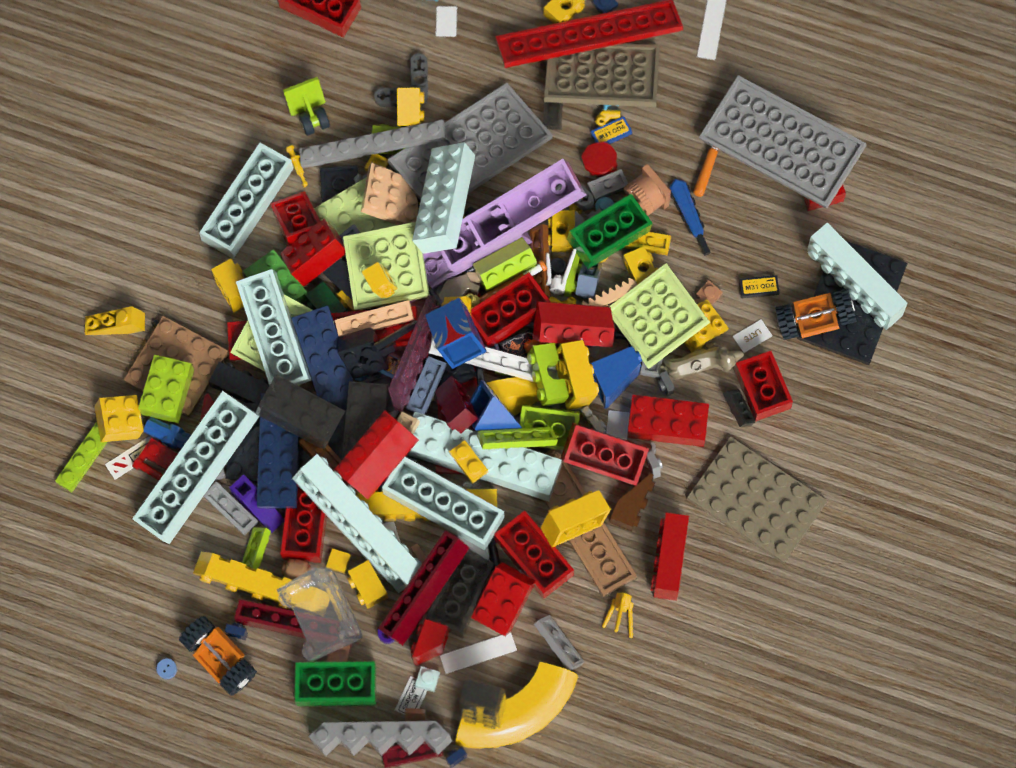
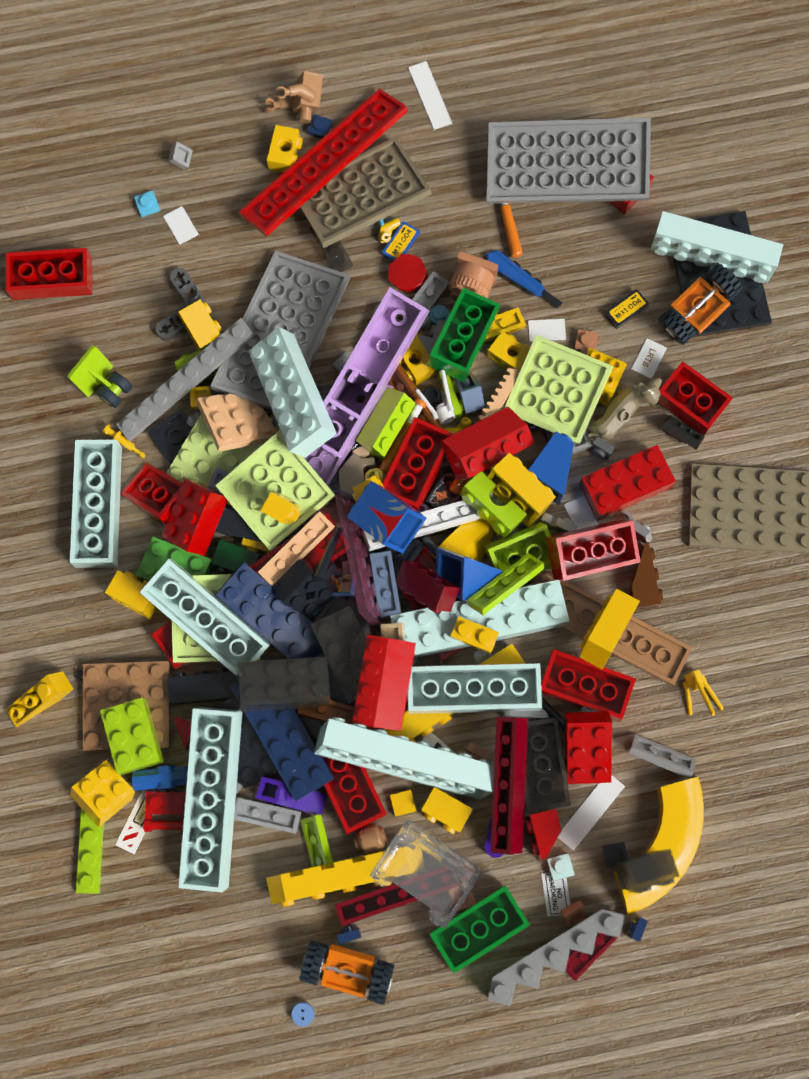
camera: 30 degrees left, 5 degrees up
(670, 561) = (714, 610): red brick -> none
(685, 267) = (550, 329): none -> white sticker

